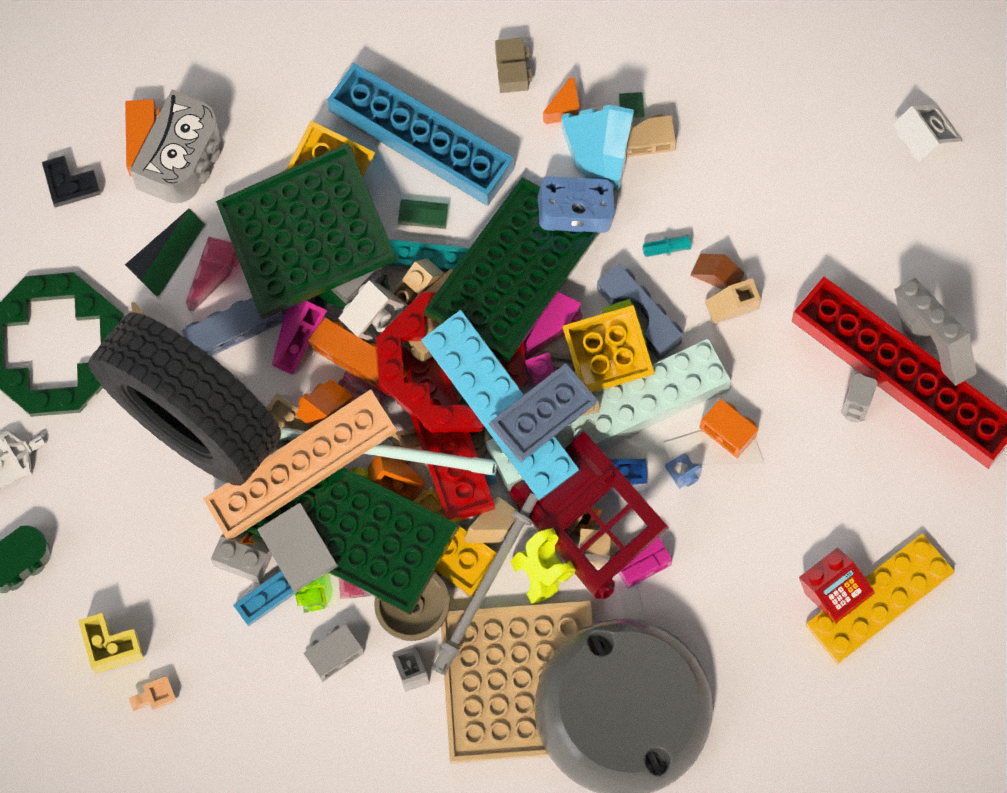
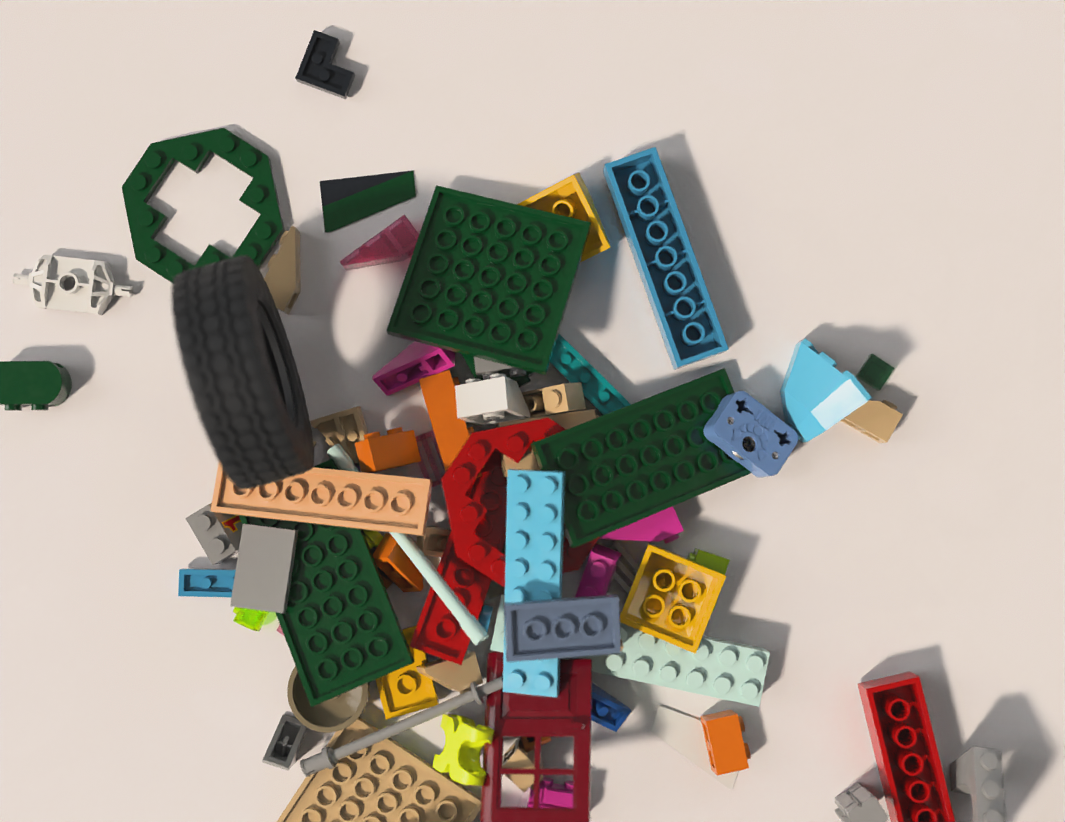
camera: 35 degrees right, 15 degrees up
(108, 651) = (41, 527): light yellow brick -> none
(139, 120) = (423, 63): orange slope -> none
(157, 694) = (58, 597): light nougat plate -> none
(178, 150) = (439, 110): light grey brick -> none
(230, 327) = (352, 308): sand blue brick -> none
(333, 652) = (232, 676): light grey brick -> none
(423, 214) = (611, 333): clear green tile -> none
(430, 501) = (412, 604): yellow tile -> none
(511, 65) = (797, 253): dark tan piece -> none
(564, 102) = (816, 328): orange slope -> none
(661, 333) = (733, 607): sand blue arch -> none
(666, 246) = (802, 530): teal axle -> none
(688, 478) = (652, 757): medium blue bracket -> none
(717, 270) = (828, 588): dark orange slope -> none
(733, 301) = (820, 631): tan slope -> none

